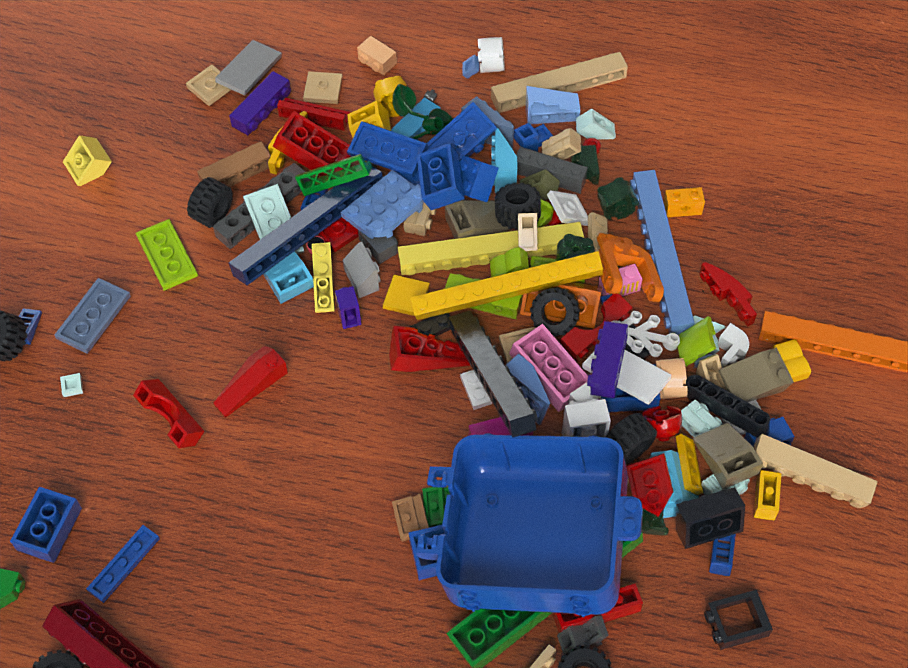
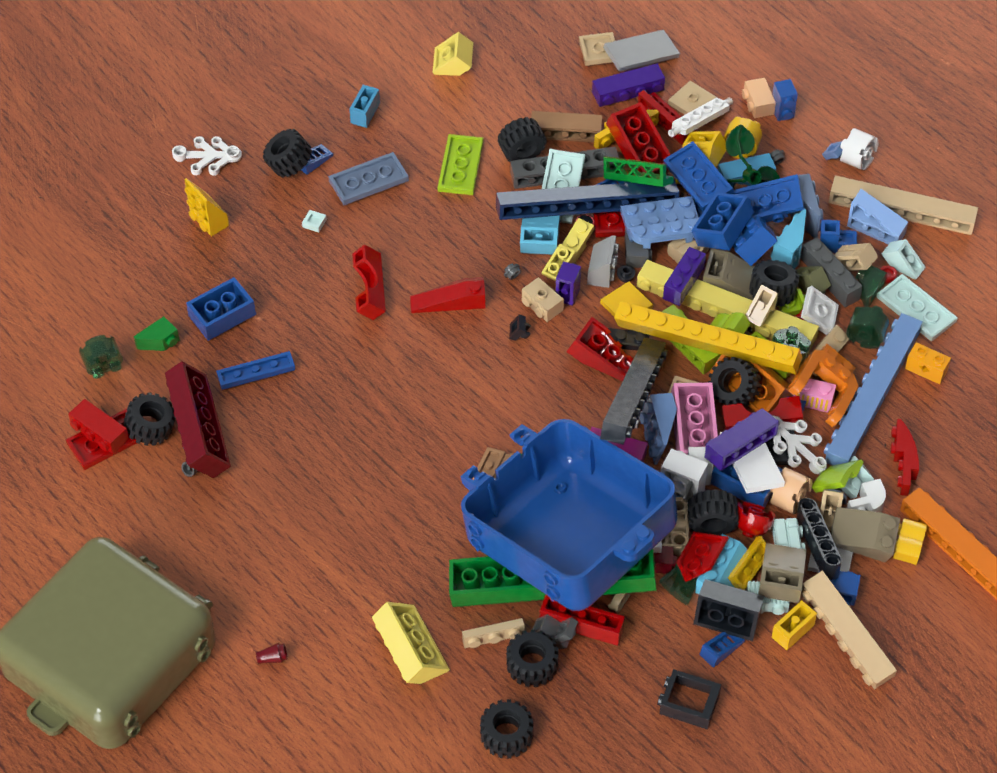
camera: 35 degrees right, 5 degrees down
(40, 250) = (364, 106): none -> dark azure brick
(287, 325) = (512, 271): none -> dark grey plate
(333, 374) = (519, 328): none -> black tile
(334, 335) = (542, 299): none -> tan brick
(344, 97) = (700, 116): none -> white plate
(386, 273) = (626, 273): none -> black plate
(403, 44) = (785, 98): none -> blue brick
(444, 243) = (684, 276): none -> dark purple brick
(629, 158) = (908, 298): none -> light aqua tile

